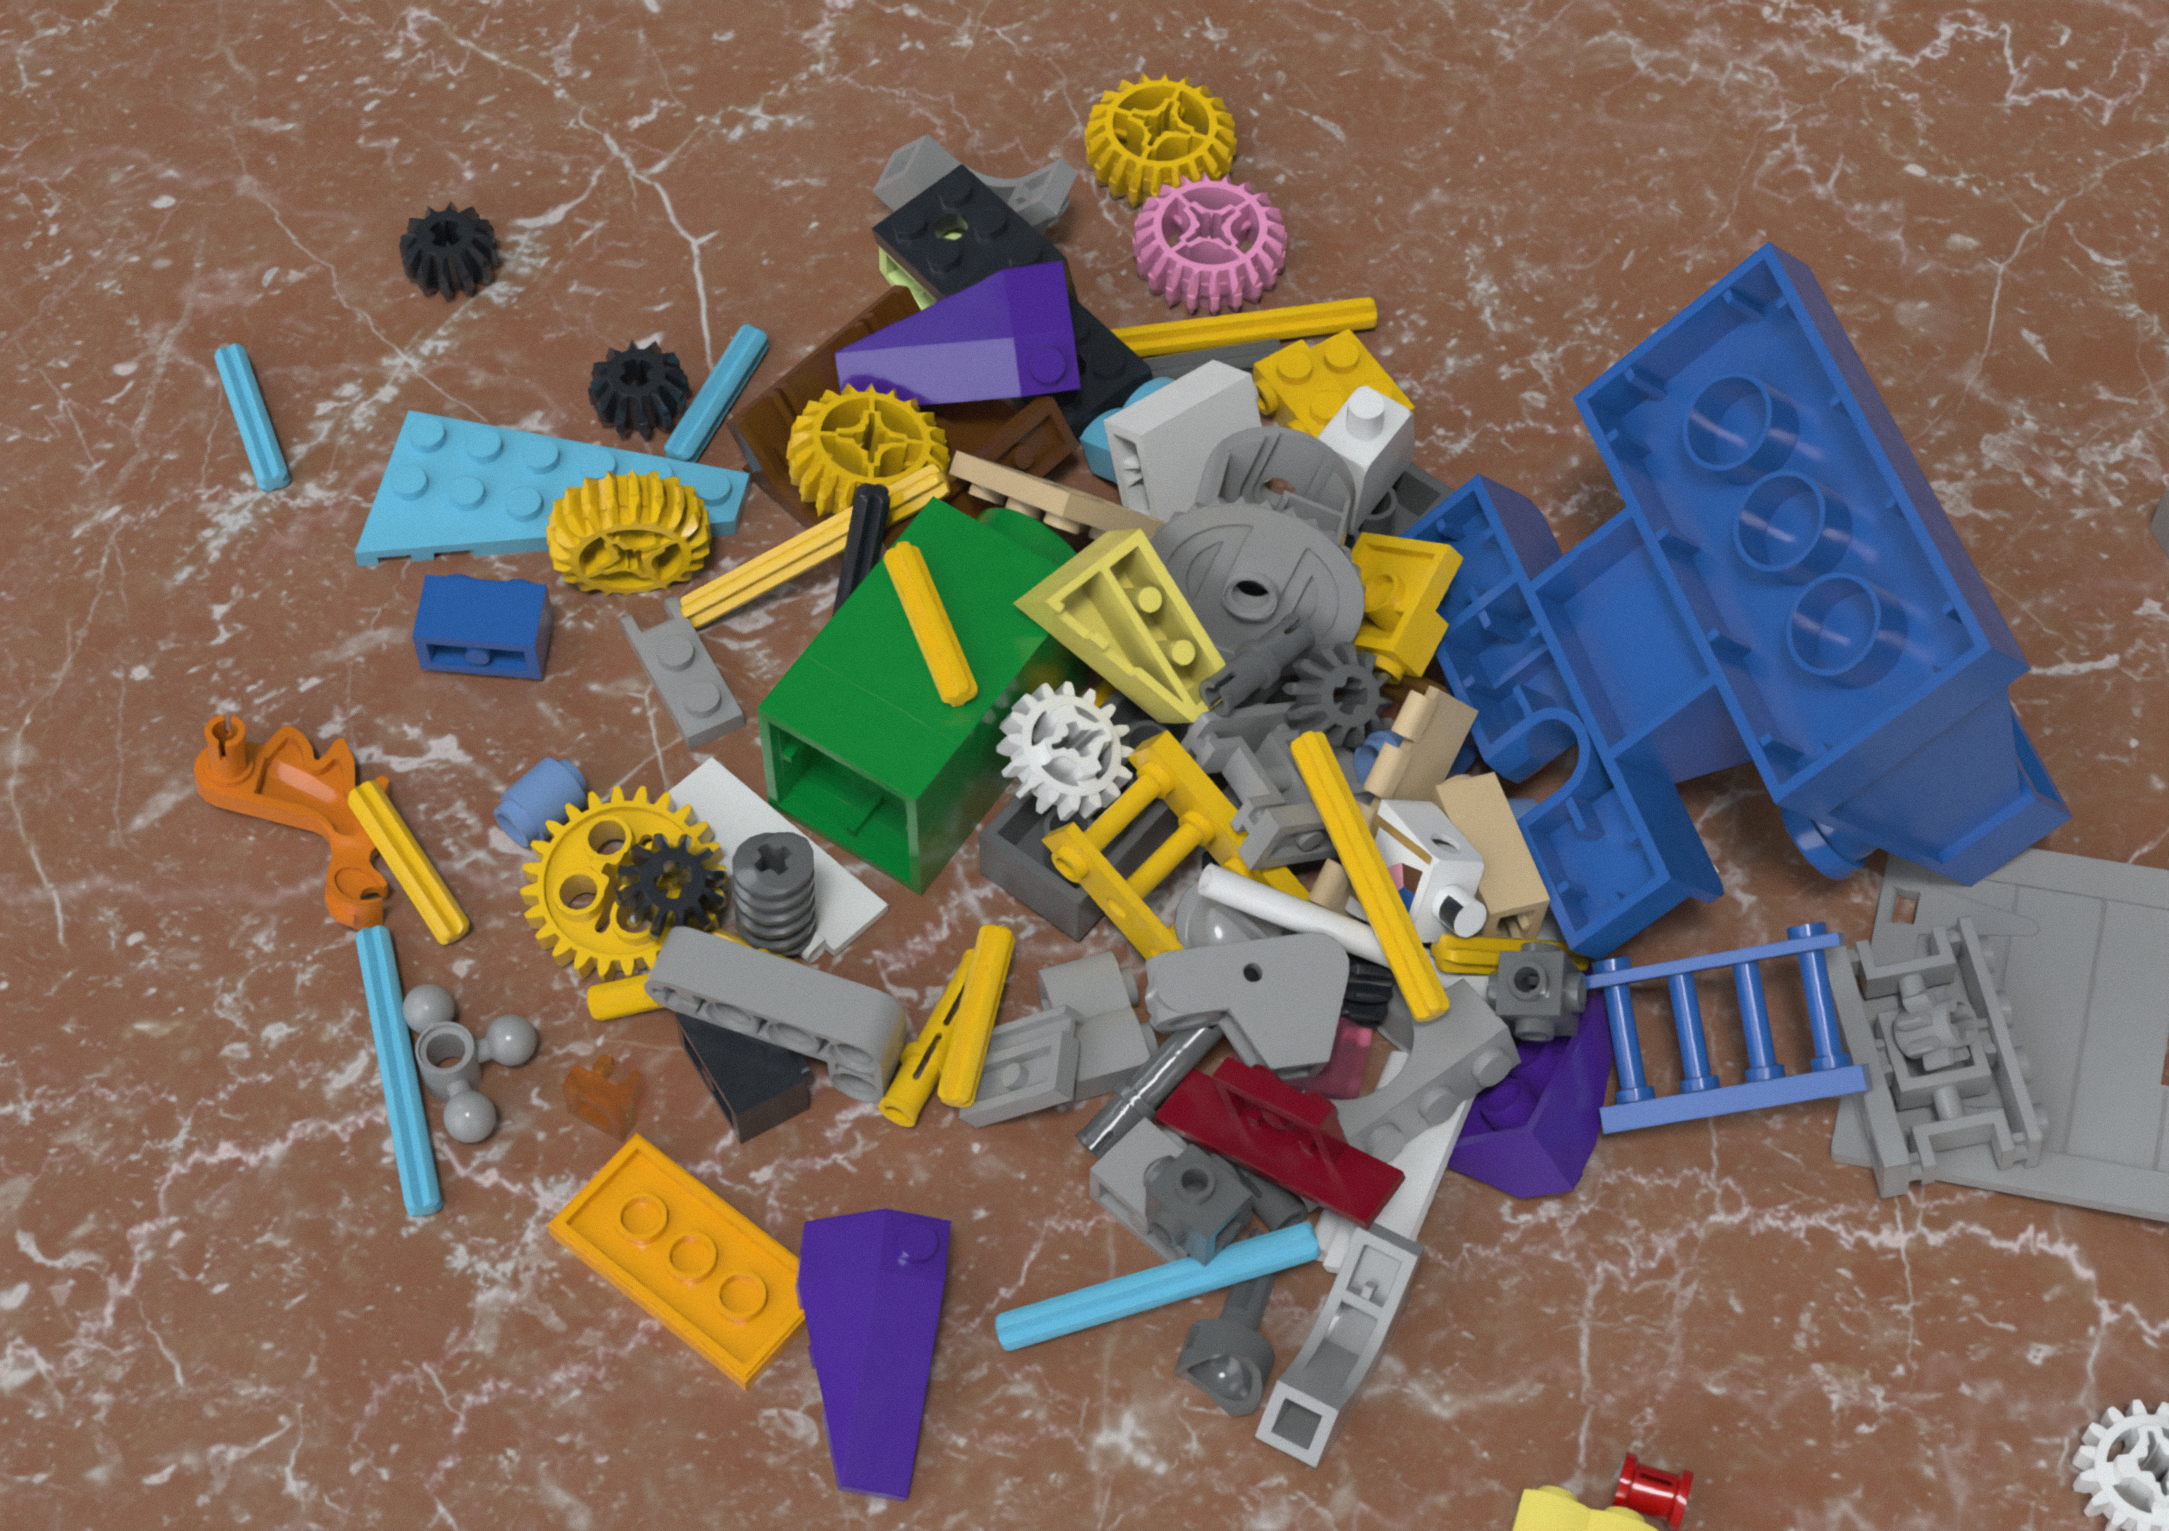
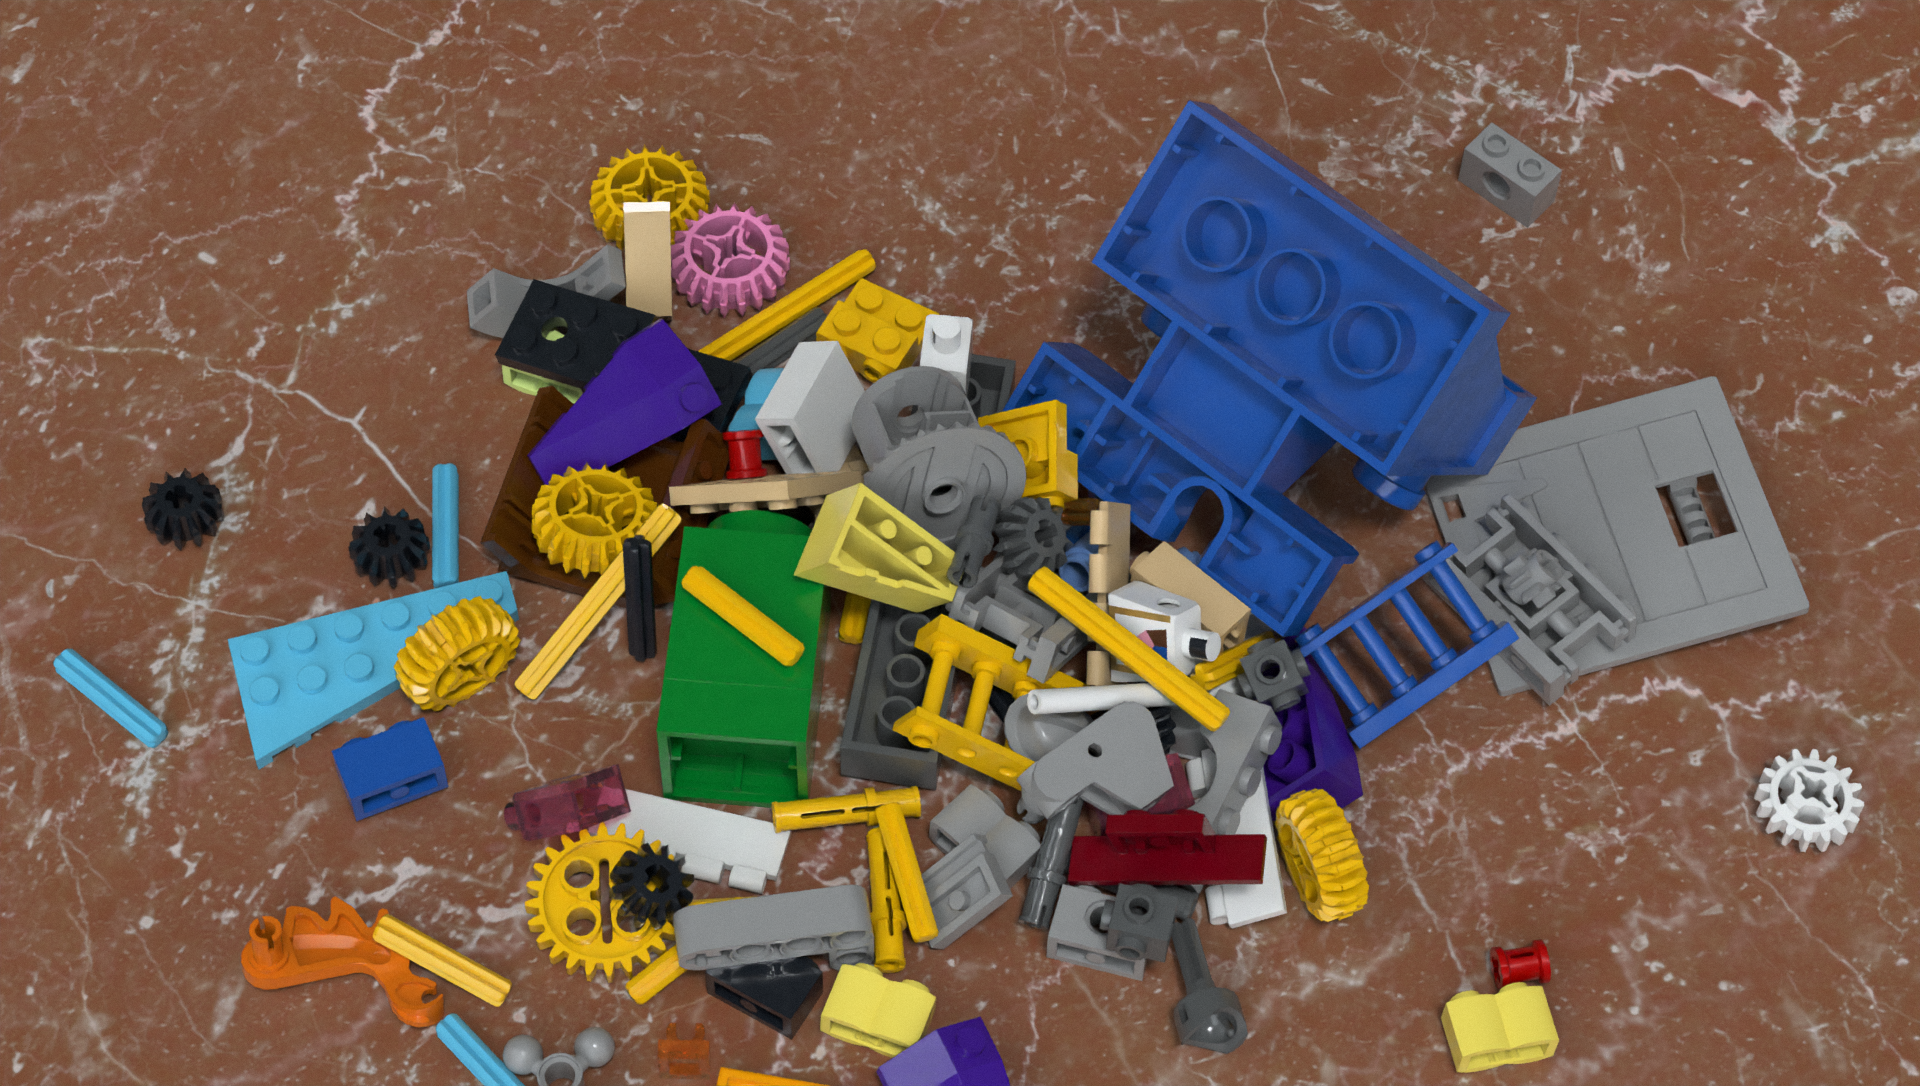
camera: 30 degrees left, 0 degrees up
(540, 797) = (507, 872): medium blue brick -> none
(623, 755) = (553, 808): none -> clear pink torso
(684, 677) = (546, 734): light grey hinge -> none
(775, 892) = (726, 853): dark grey piece -> none
(846, 1156) = (877, 1011): none -> light yellow brick
(888, 889) = (789, 814): none -> yellow pin
(1065, 751) = (889, 678): white gear -> none
(1080, 459) = (744, 454): none -> red bush
(1105, 198) = (648, 258): none -> tan slope
(1156, 1287) = (1134, 994): medium azure axle -> none
(1344, 1346) = (1276, 969): light grey arch -> none
(1474, 1235) = (1321, 855): none -> yellow gear

